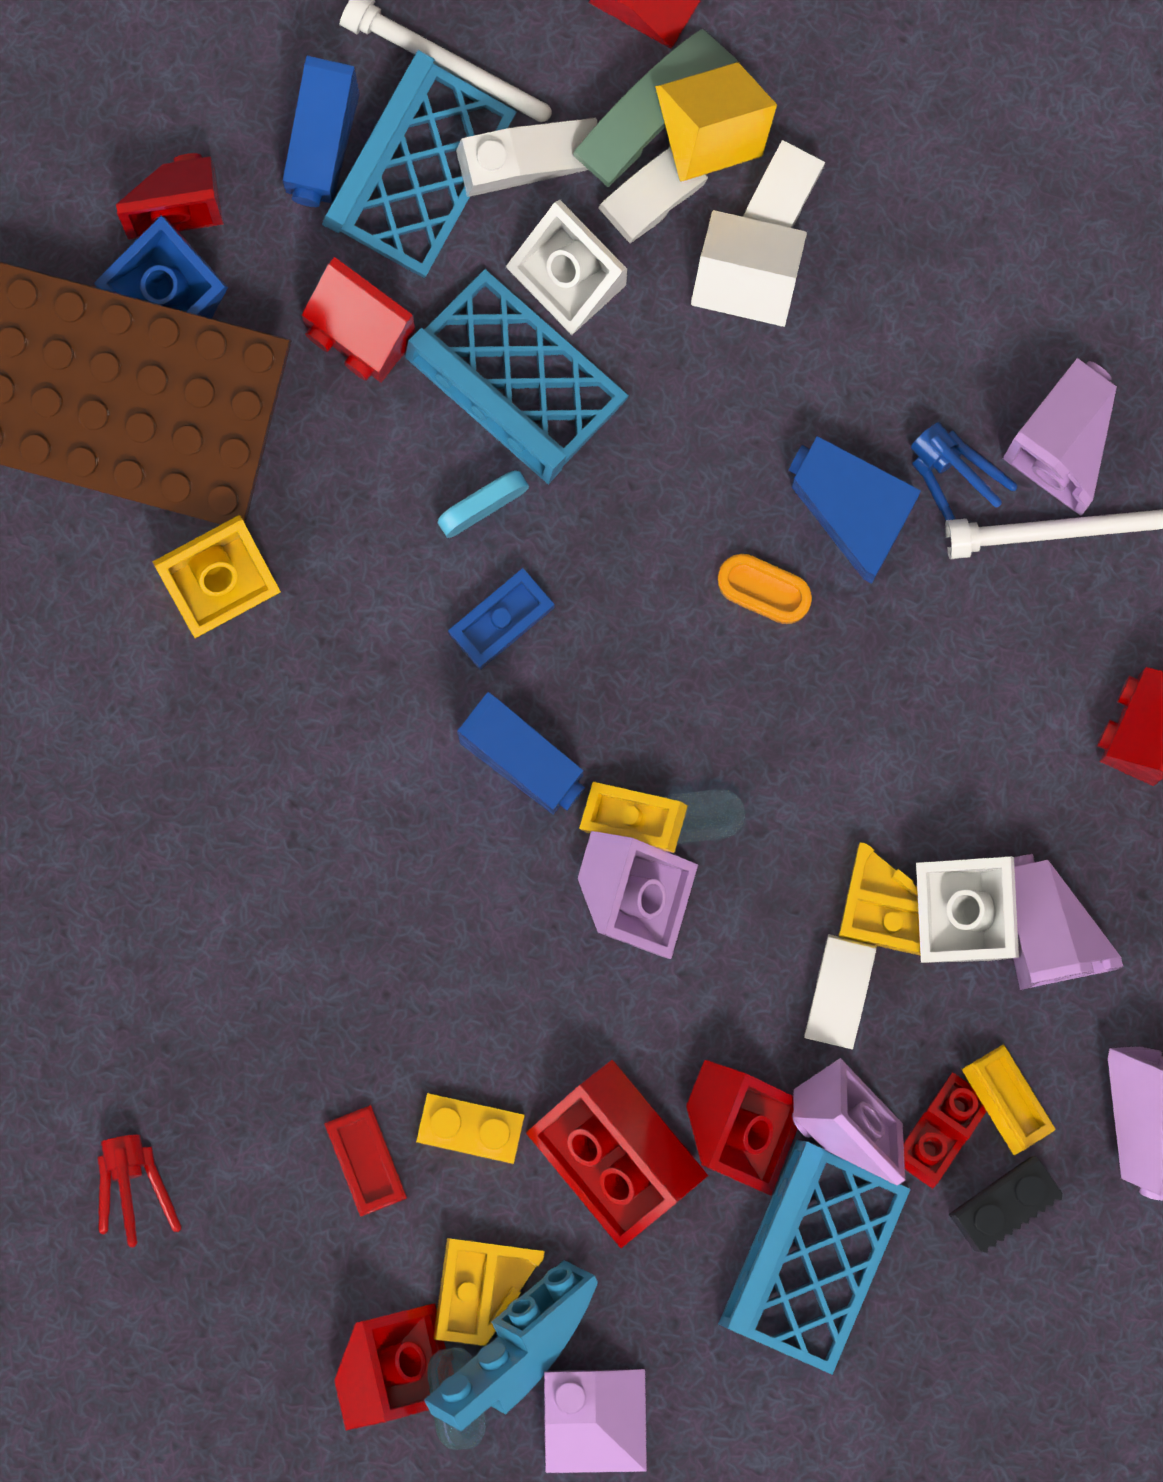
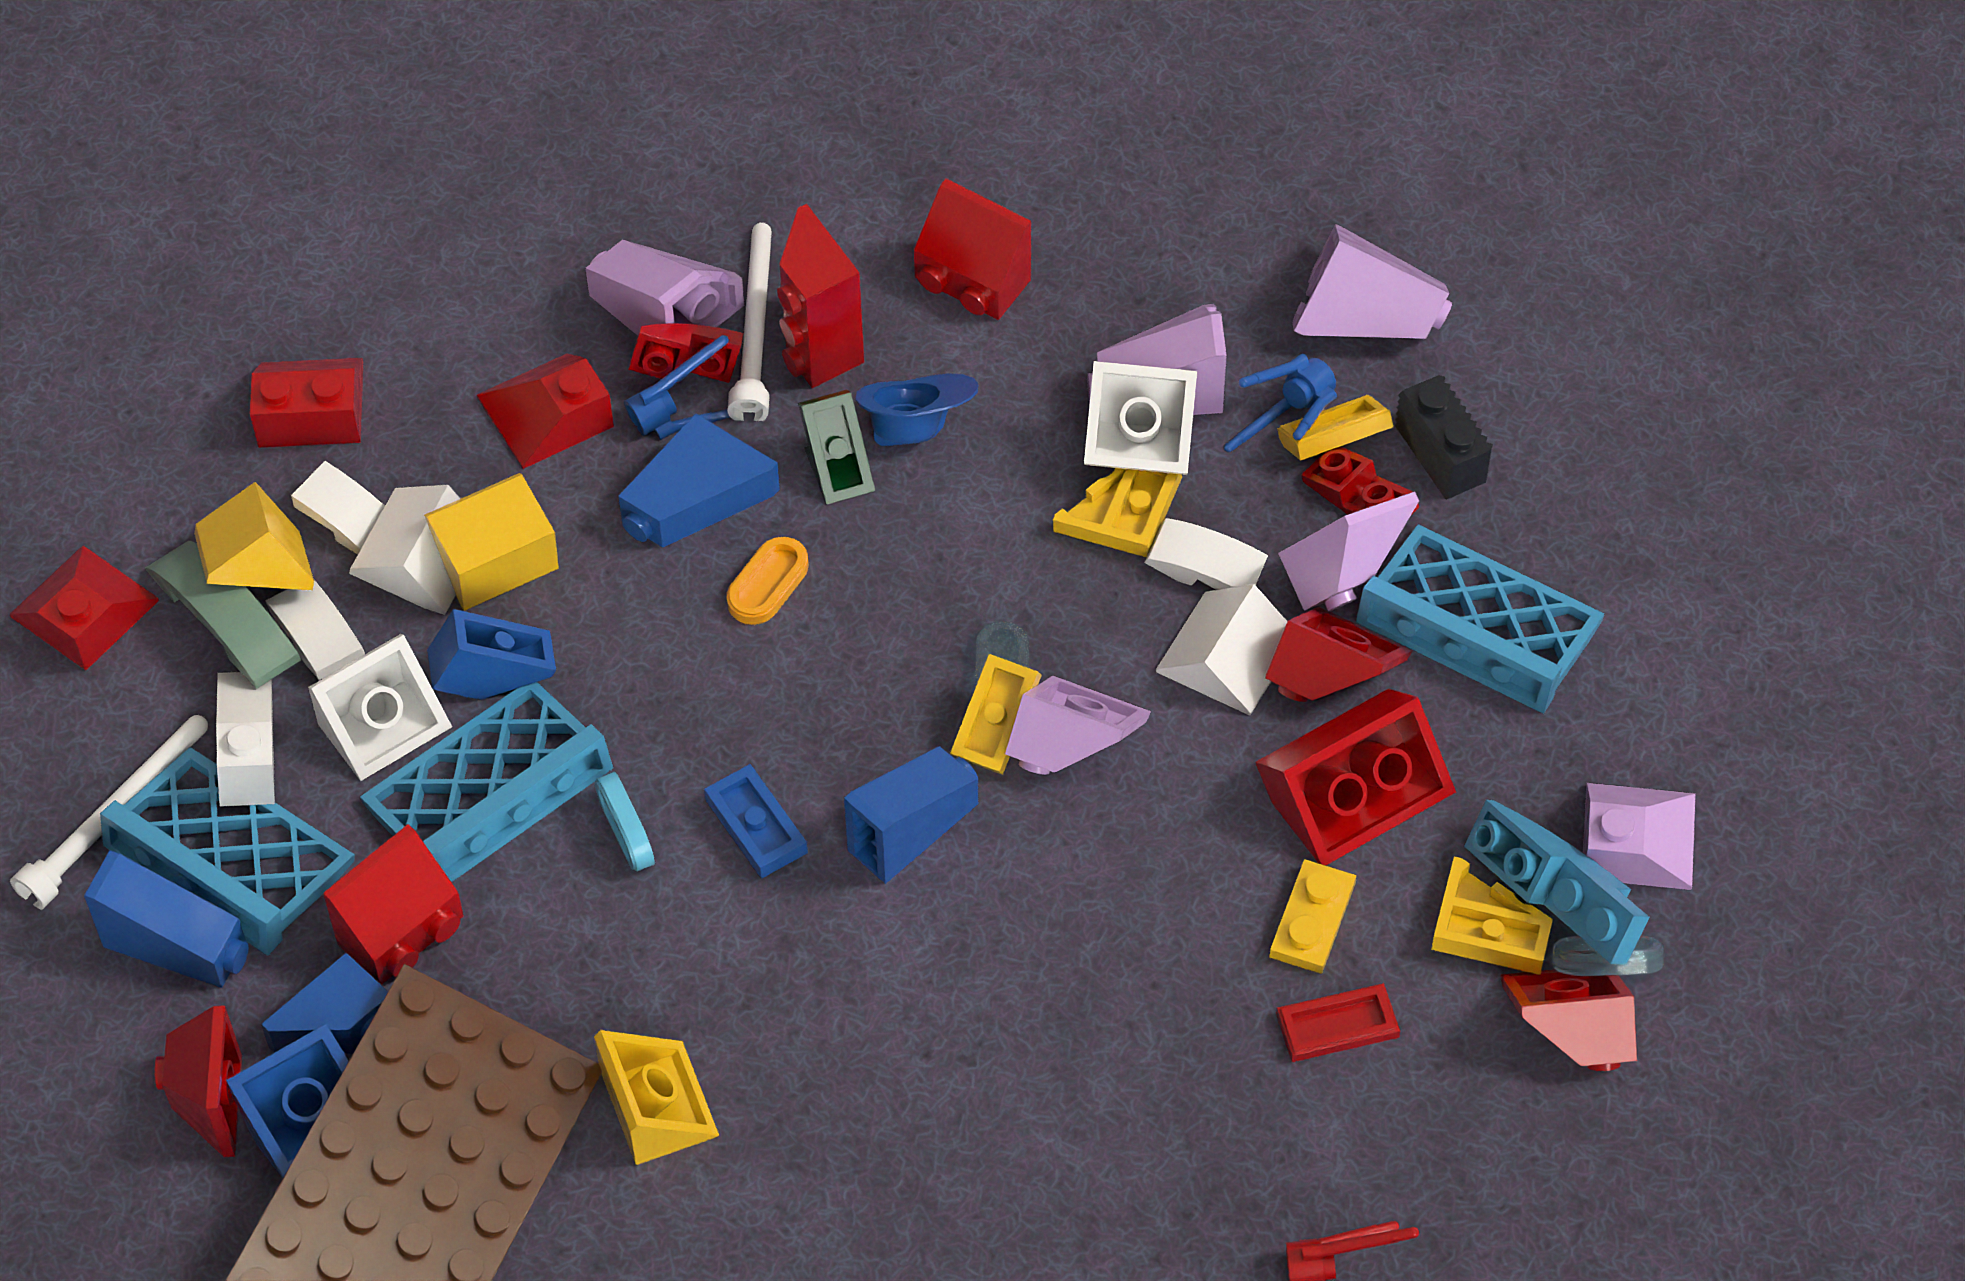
camera: 80 degrees left, 25 degrees down
(261, 292) = (340, 997): none -> blue slope
(635, 354) = (488, 655): none -> blue slope
(744, 1022) = (1227, 646): none -> white slope
(753, 328) = (493, 541): none -> yellow slope
(906, 130) = (307, 402): none -> red slope
(910, 628) = (836, 446): none -> slope
(929, 351) = (549, 408): none -> red slope
(971, 694) = (913, 408): none -> blue piece
(990, 451) = (667, 346): none -> red slope
(1048, 1064) = (1306, 386): none -> blue plant
(1050, 579) = (819, 303): none -> red slope

